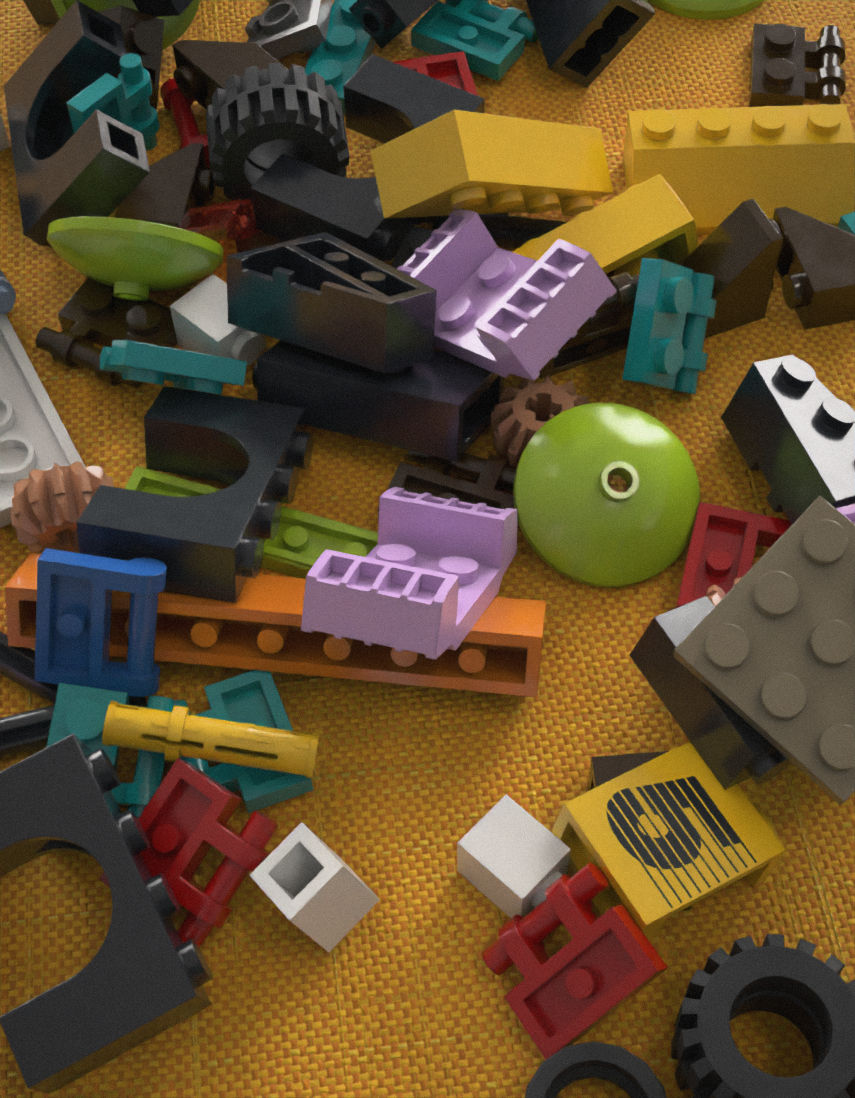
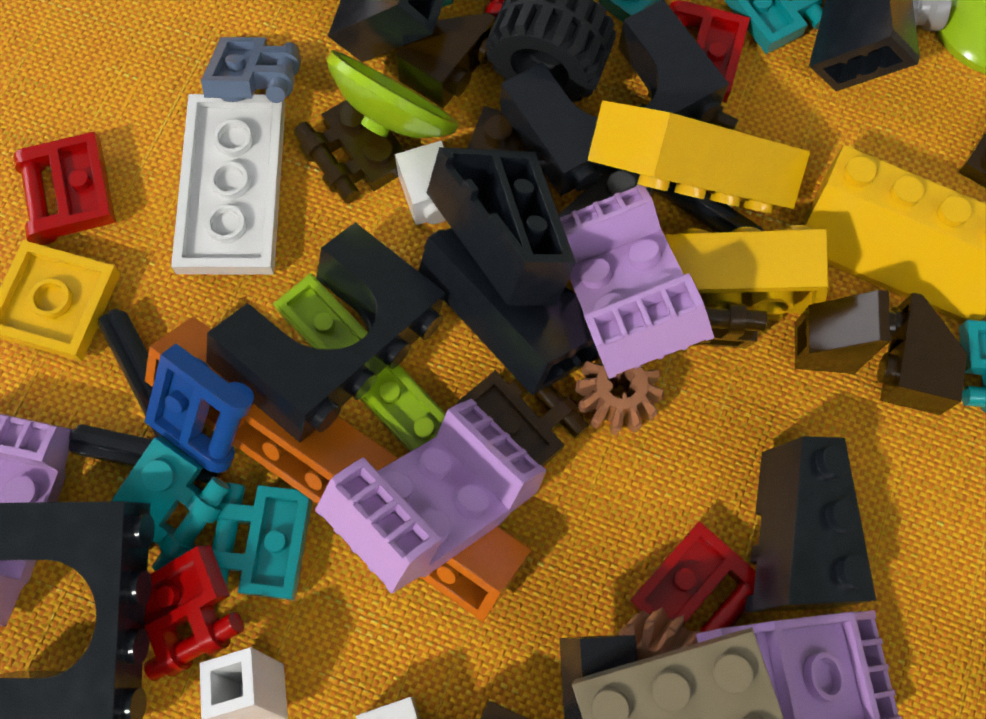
camera: 25 degrees right, 15 degrees up
(50, 504) = (227, 285): nougat gear -> none
(184, 368) = (382, 218): teal plate -> none
(209, 739) = (221, 533): yellow pin -> none
(222, 221) = (468, 98): clear red slope -> none
(583, 523) = (627, 442): lime dish -> none
(669, 326) = (759, 363): teal plate -> none

